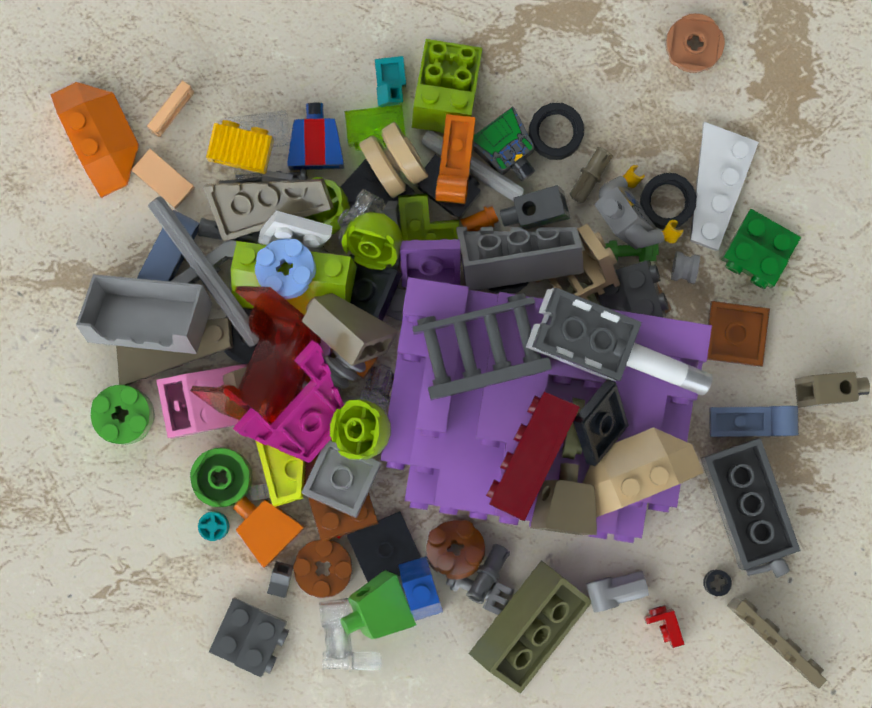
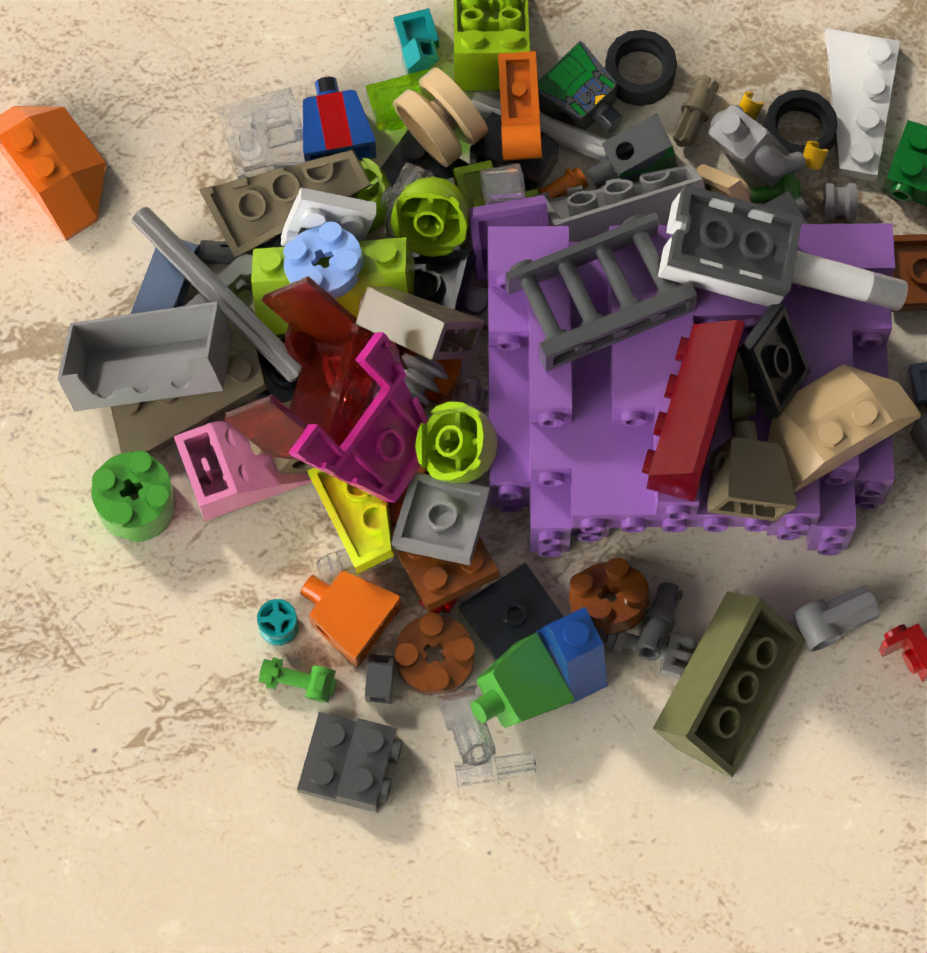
camera: 10 degrees left, 15 degrees down
(162, 178) = (130, 193): light nougat tile -> none
(170, 109) = (141, 115): light nougat tile -> none
(205, 482) = (269, 534): bright green brick -> none
(236, 576) = (319, 683): none -> bright green bar
(240, 147) = (240, 131): yellow brick -> none
(429, 225) = (502, 184): none -> clear piece

